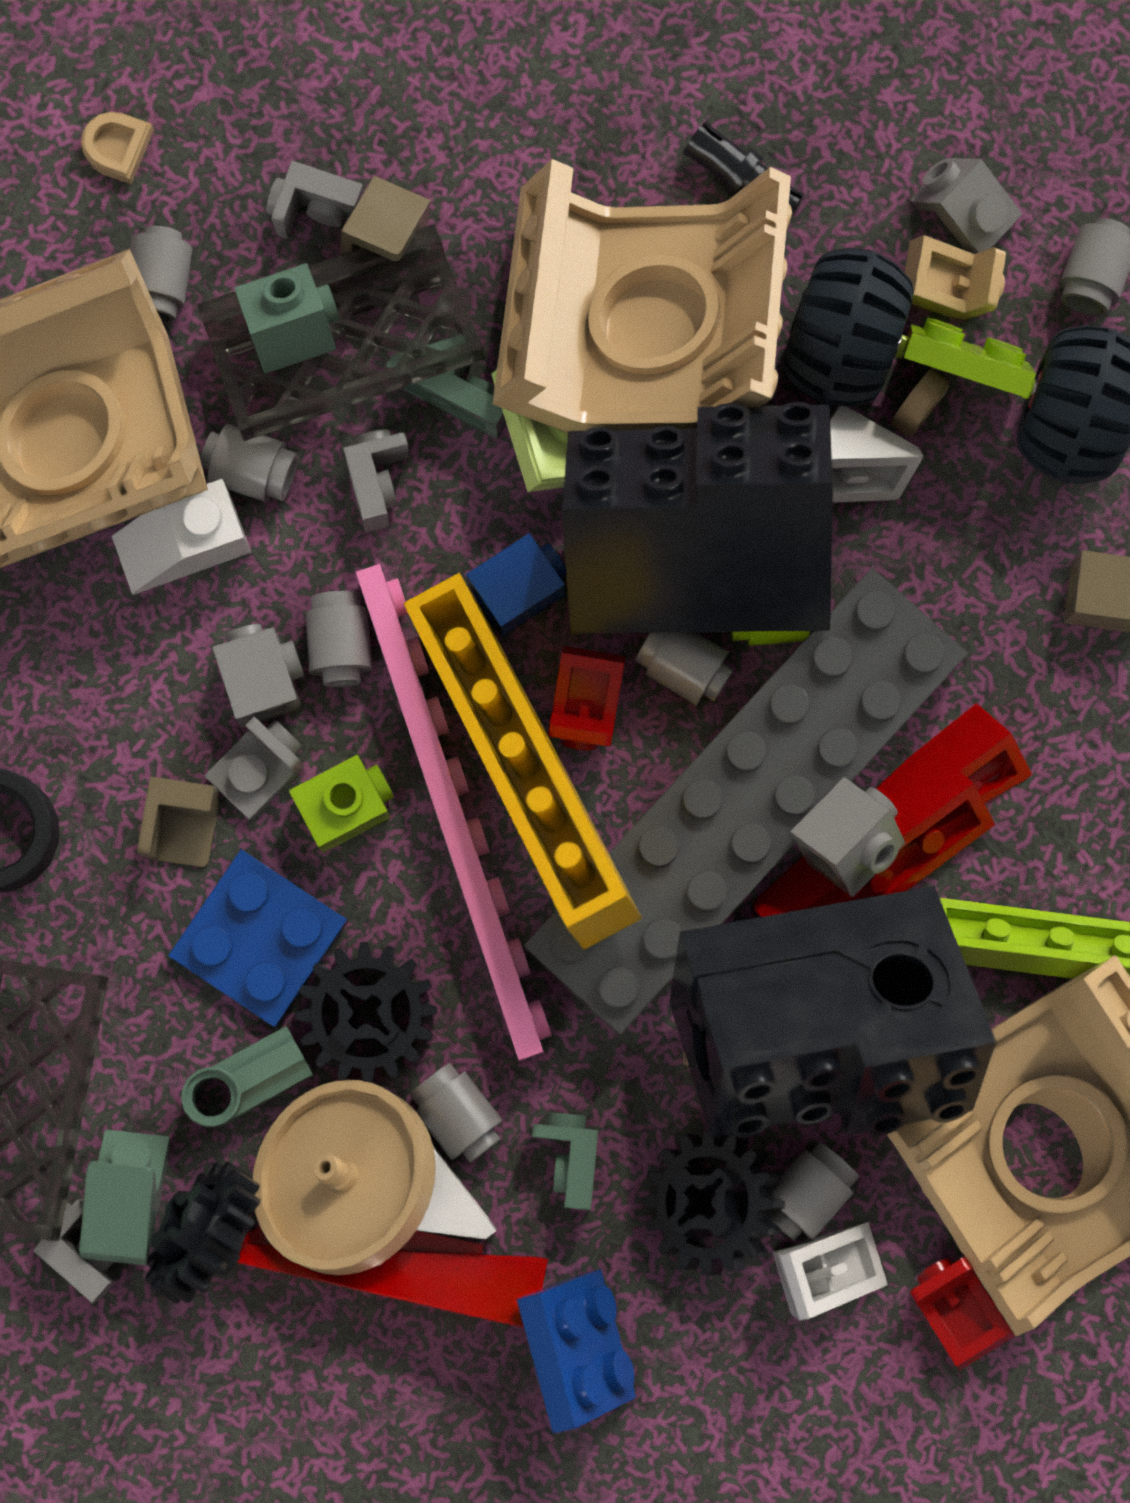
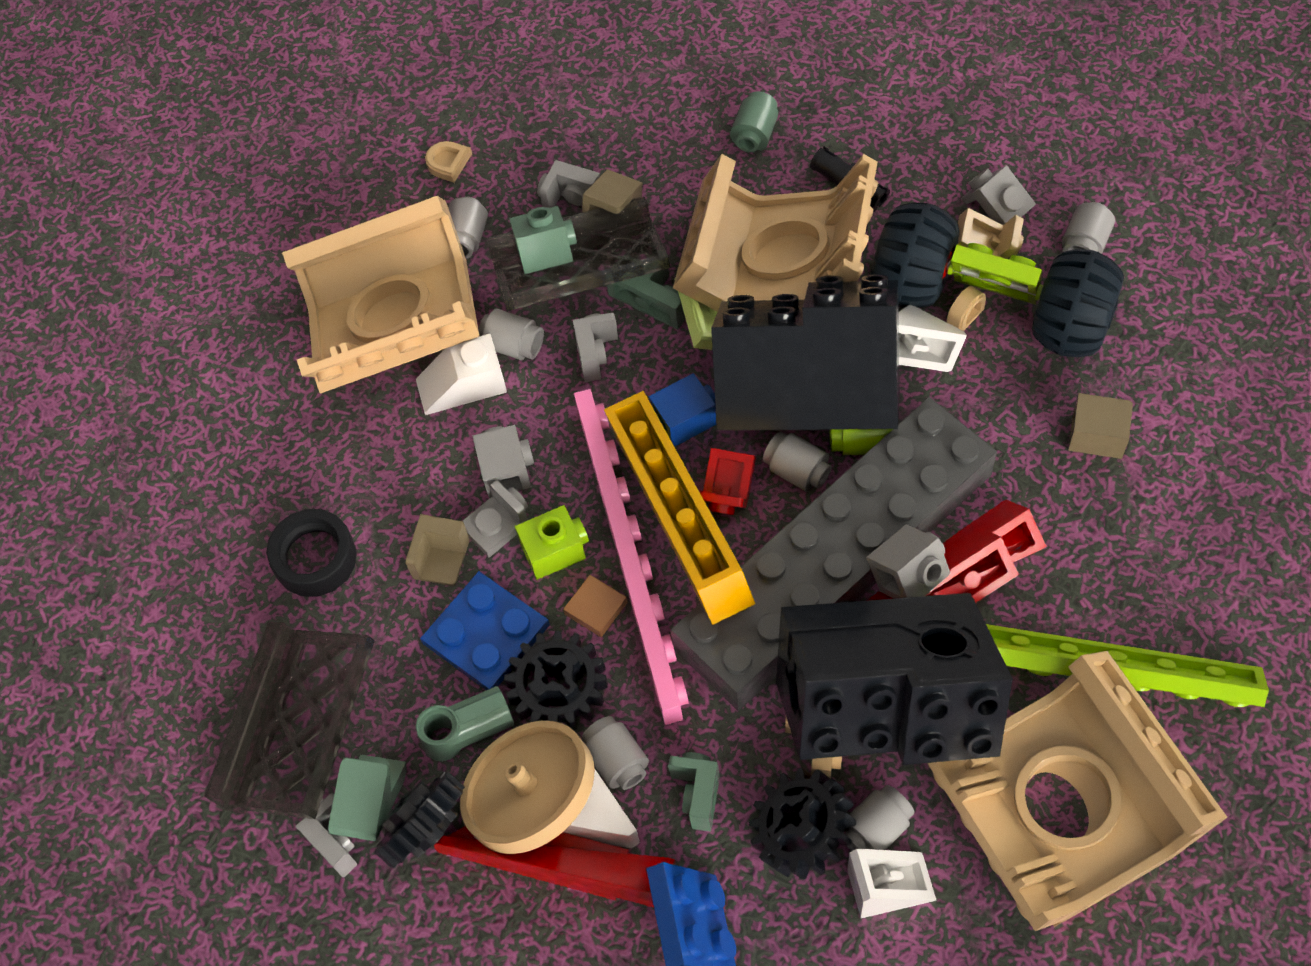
camera: 15 degrees right, 20 degrees down
(338, 638) = (559, 440): light grey brick -> none
(411, 892) = (595, 605): none -> medium nougat tile
(595, 73) = (754, 122): none -> sand green brick
(960, 1311) = (991, 916): red bracket -> none

